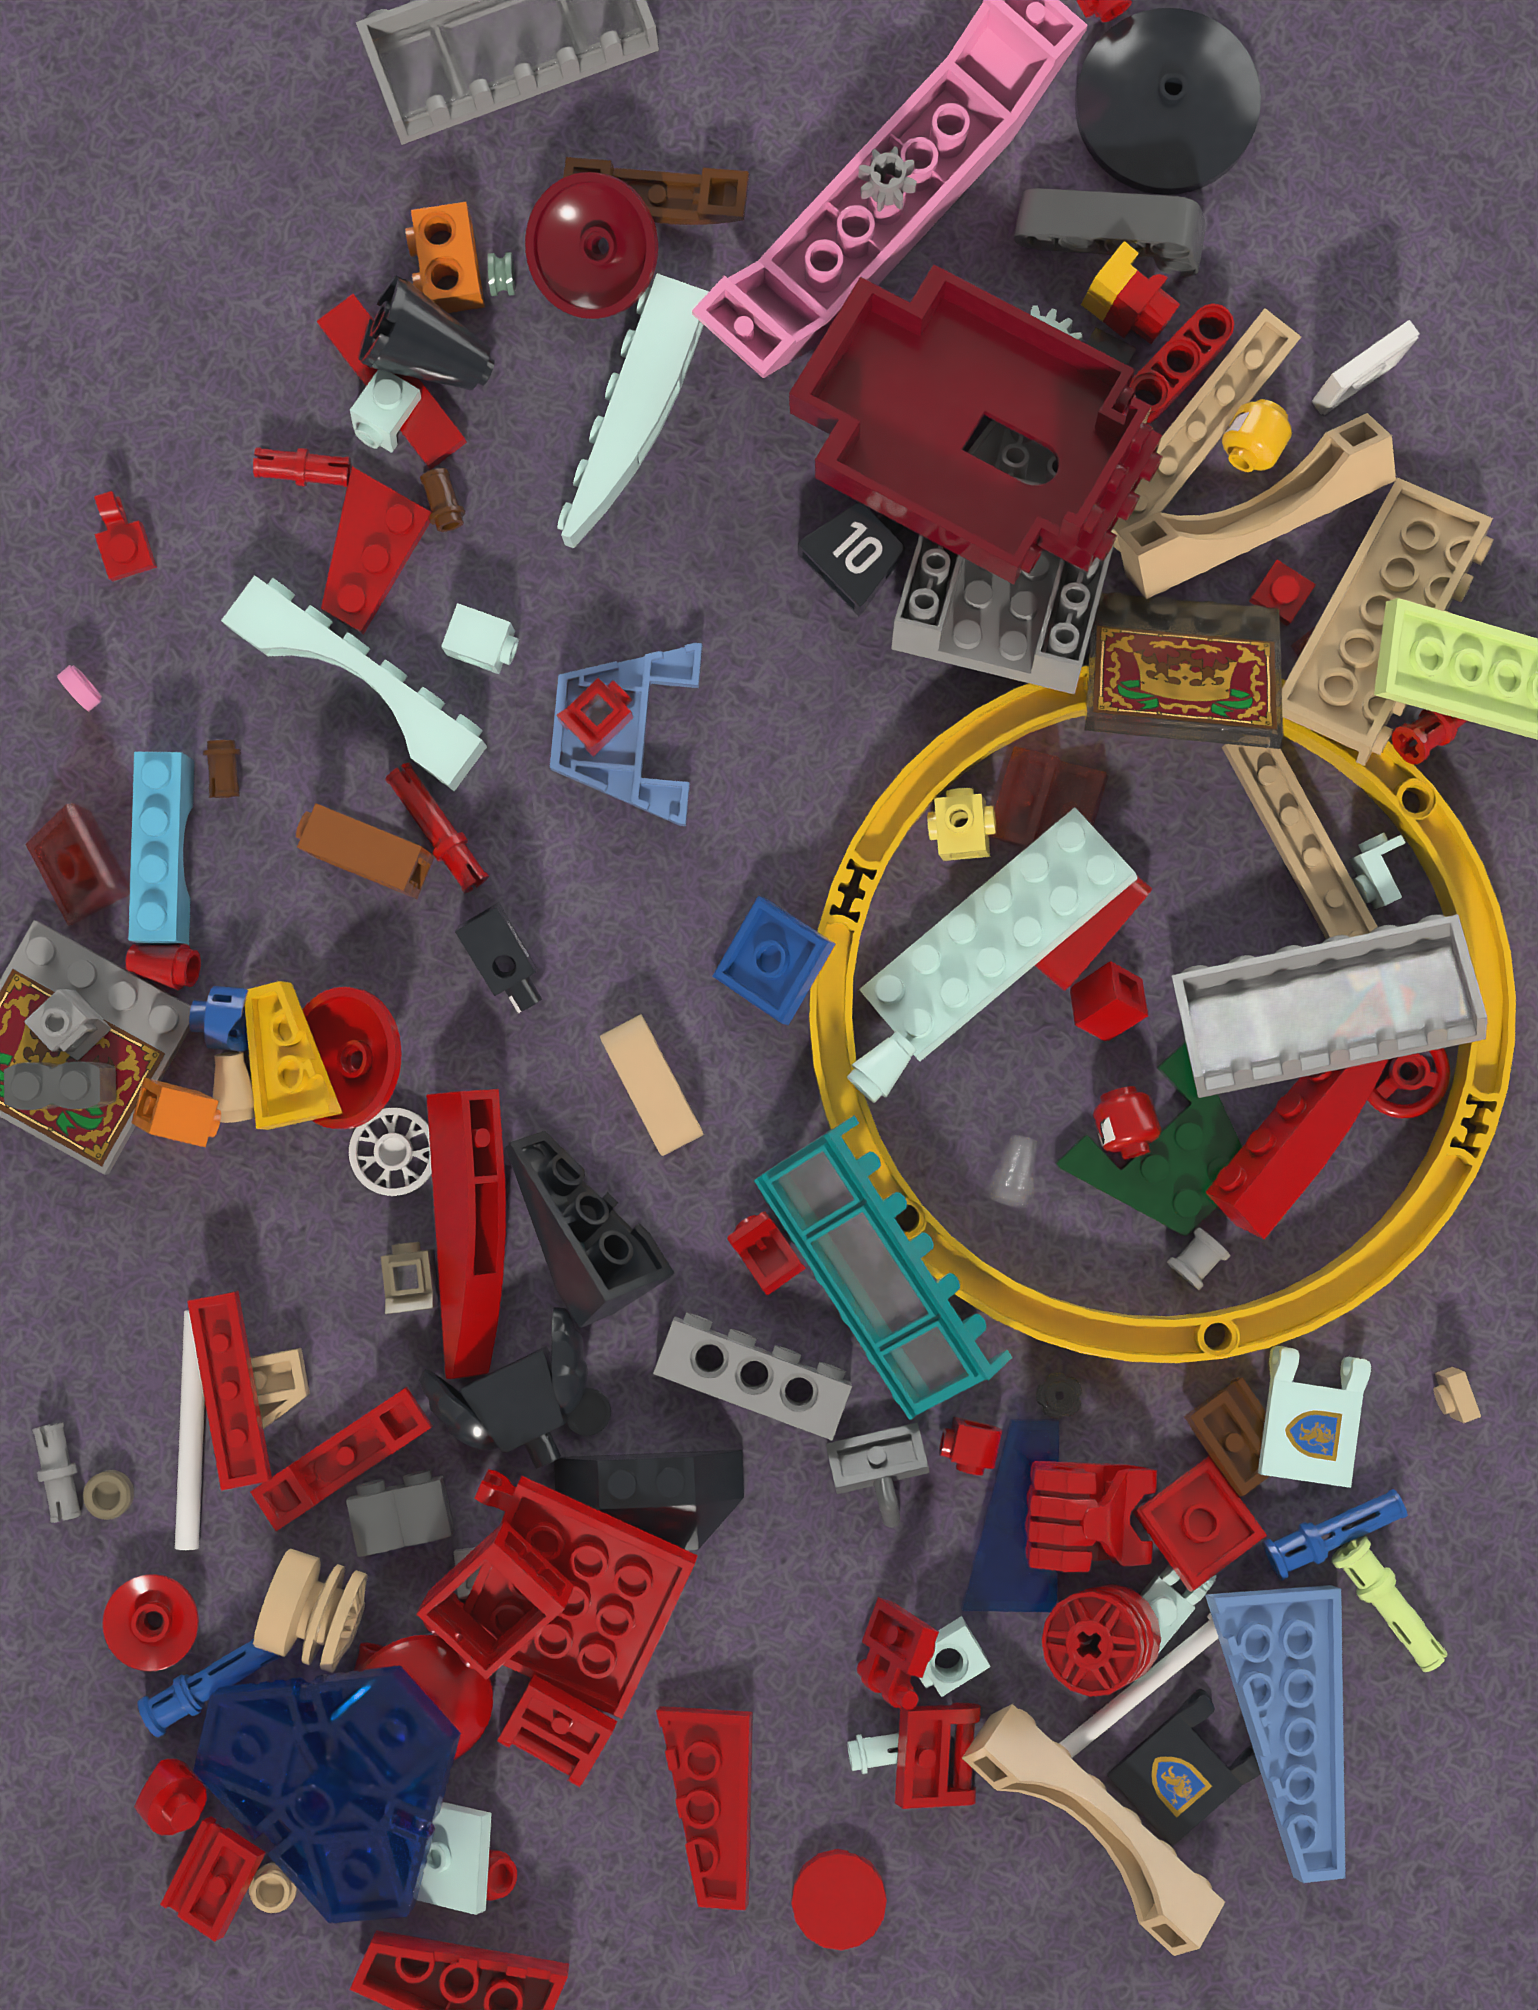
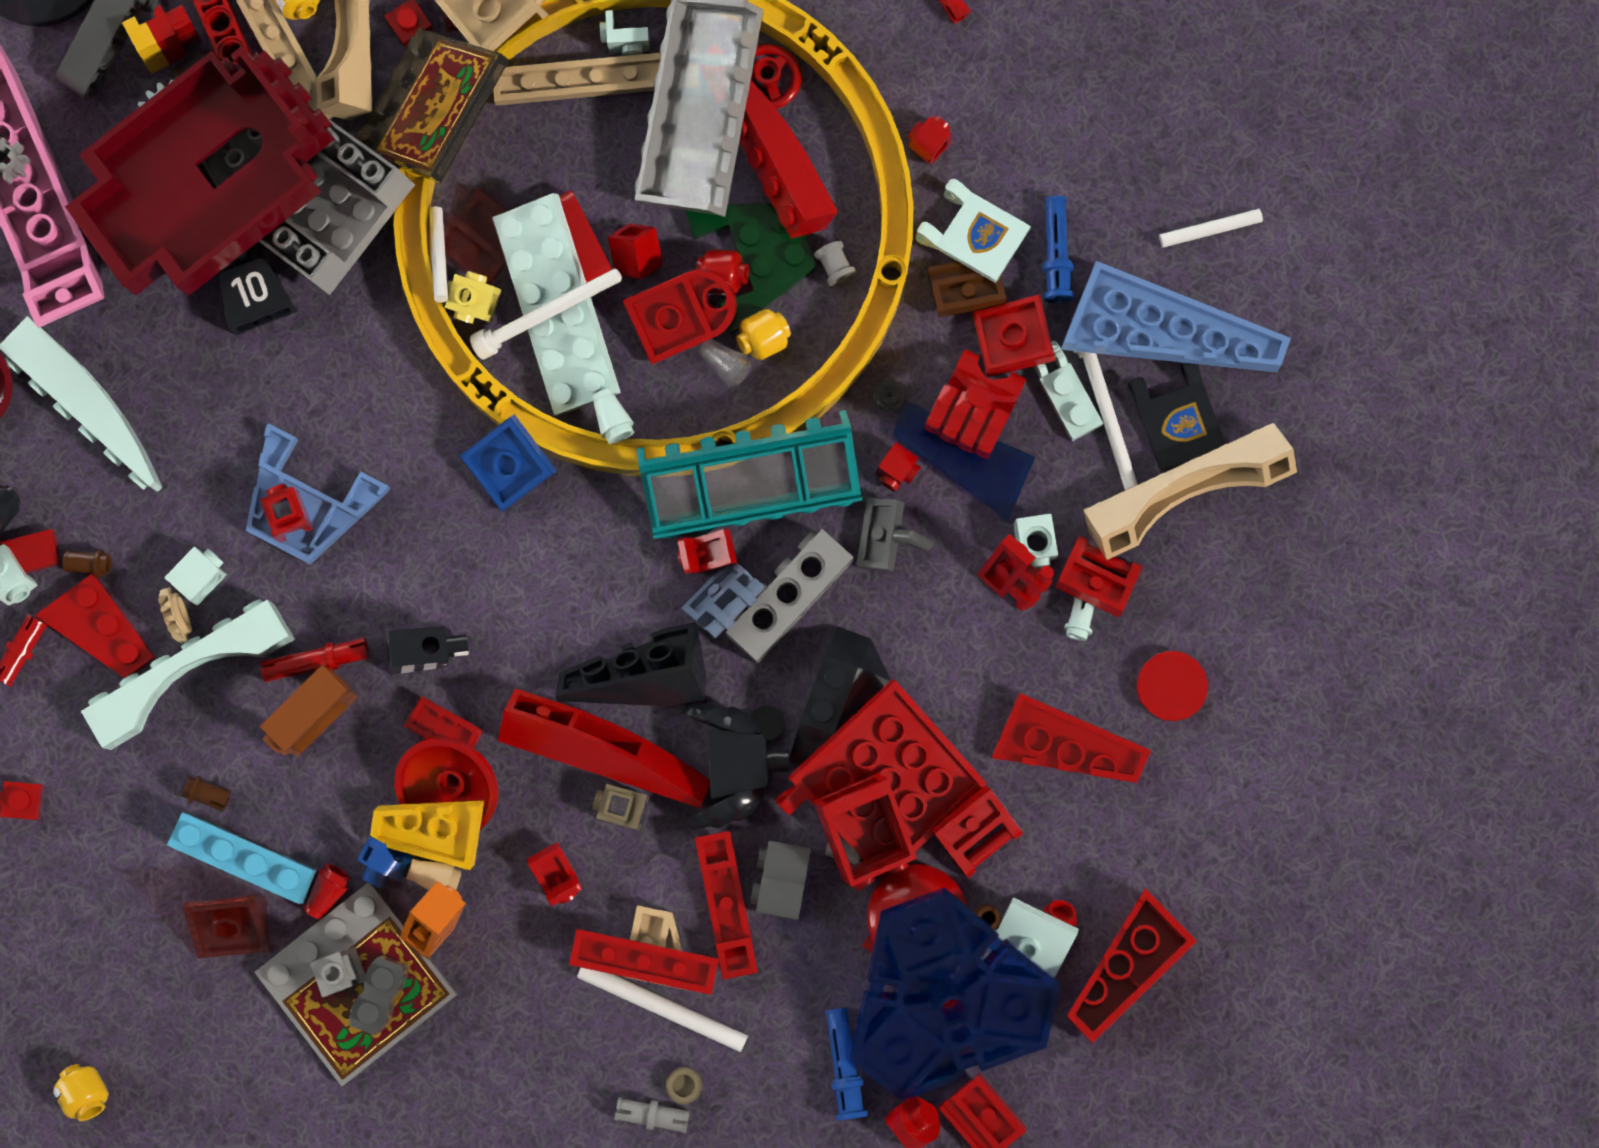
camera: 70 degrees left, 5 degrees down
(79, 687) = (104, 871): bright pink tile -> none
(132, 1636) = (788, 1108): red dish -> none
(272, 1889) = (1007, 1079): tan plate -> none
(294, 1234) = (555, 874): none -> red bracket
(310, 1610) = (821, 966): tan wheel -> none
(391, 1152) = (528, 784): white wheel -> none
(419, 636) = (175, 615): none -> tan gear
(419, 1017) = (435, 721): none -> red plate
(464, 1779) = (990, 908): none -> reddish brown pin
(651, 1085) = (558, 583): tan beam -> none
(720, 1288) = (723, 599): none -> sand blue plate
(915, 868) = (487, 342): none -> white piece
(999, 760) = (438, 254): none -> white bar
(1049, 1092) = (679, 314): none -> red plate
(1069, 1207) = (763, 334): none -> yellow head
(1127, 1645) = (1068, 411): red wheel -> none
(1377, 1586) = (1105, 236): yellowish green pin -> none
(1410, 1313) = (930, 138): none -> red plate
(1446, 1716) = (1210, 228): none -> white bar
(1455, 1395) = (997, 131): tan plate -> none

